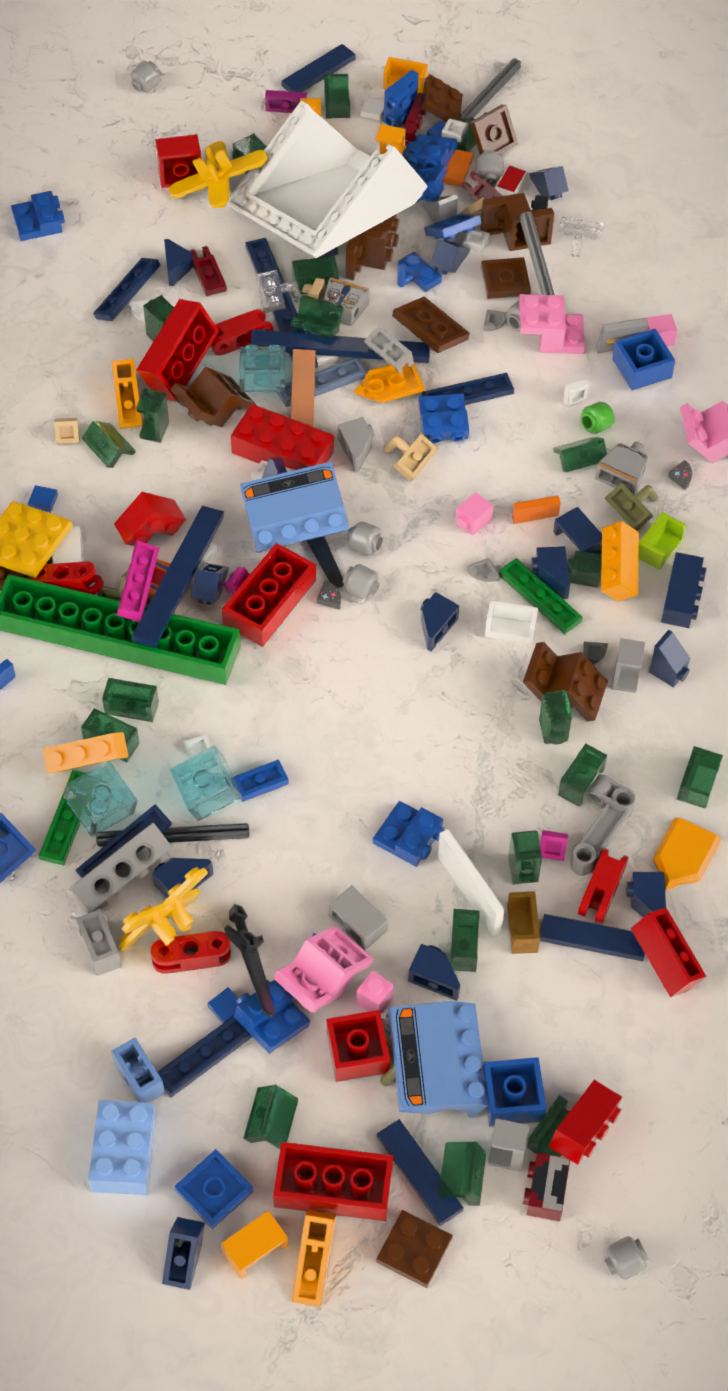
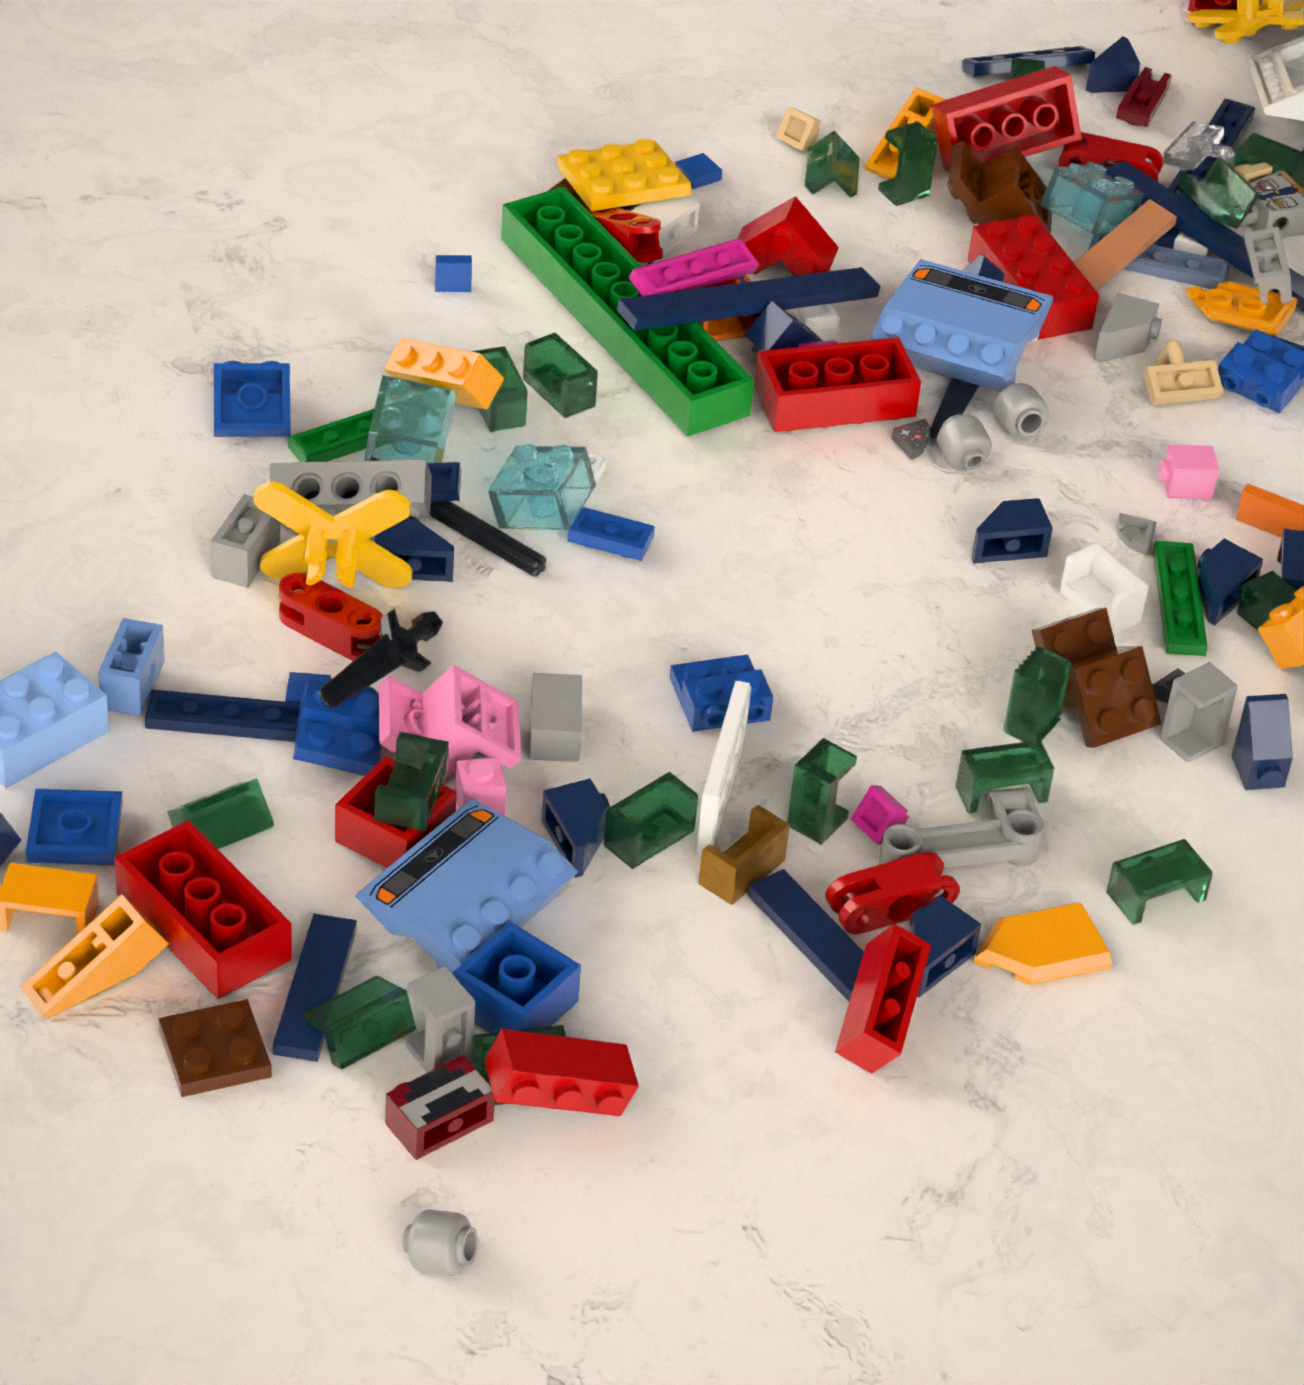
camera: 40 degrees right, 15 degrees down
(364, 1026) = (414, 782): none -> clear green panel

